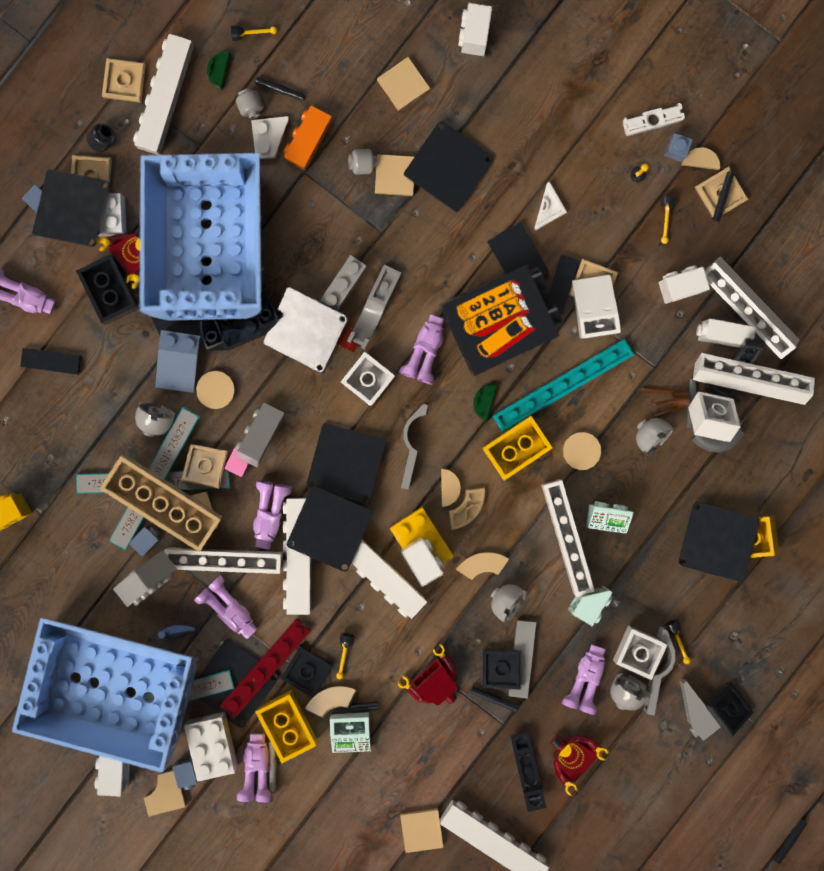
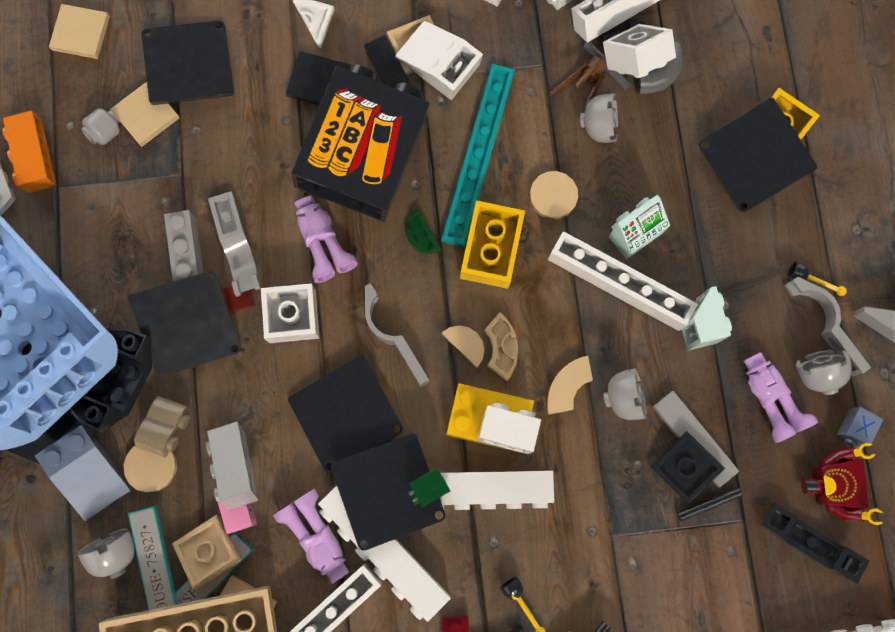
camera: 50 degrees left, 10 degrees down
(241, 375) = (161, 427): none -> dark tan brick
(351, 548) = (428, 488): none -> dark green brick
(435, 682) = (638, 545): dark red torso -> none
(615, 739) = (859, 427): none -> sand blue brick
(639, 652) = (795, 322): white brick -> none

